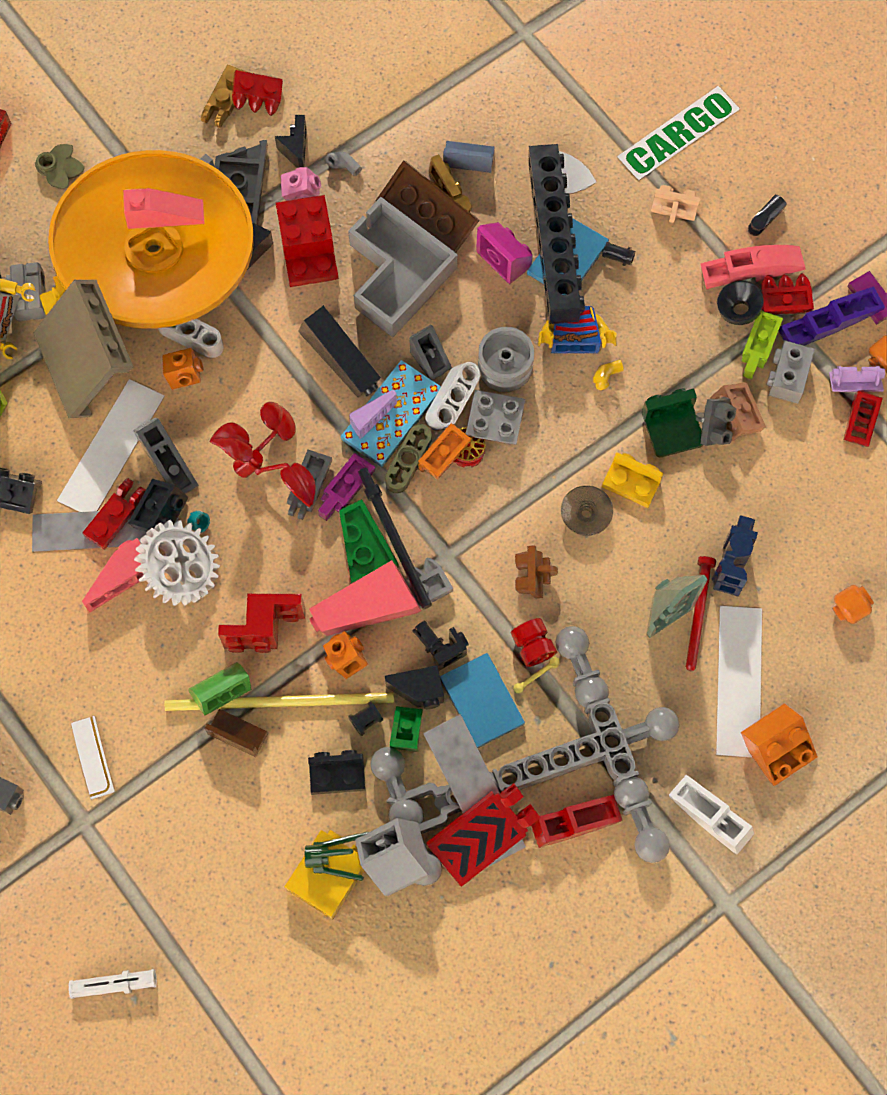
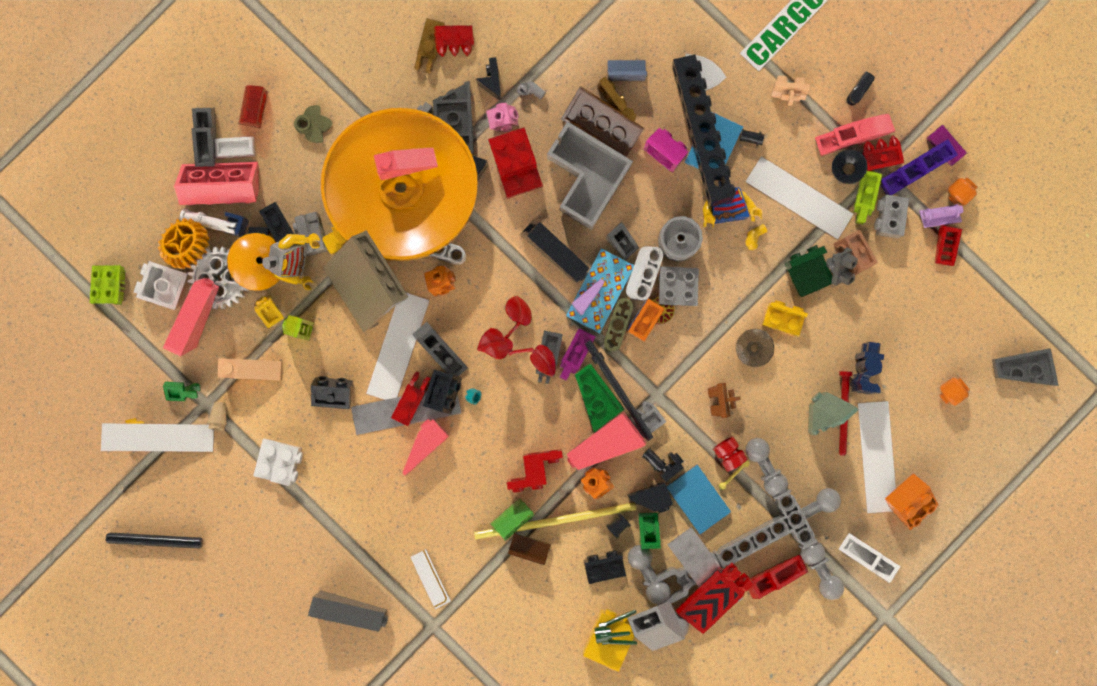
camera: 10 degrees left, 15 degrees up
(176, 562) = (479, 425): white gear -> none
(672, 336) = (799, 197): none -> white sticker

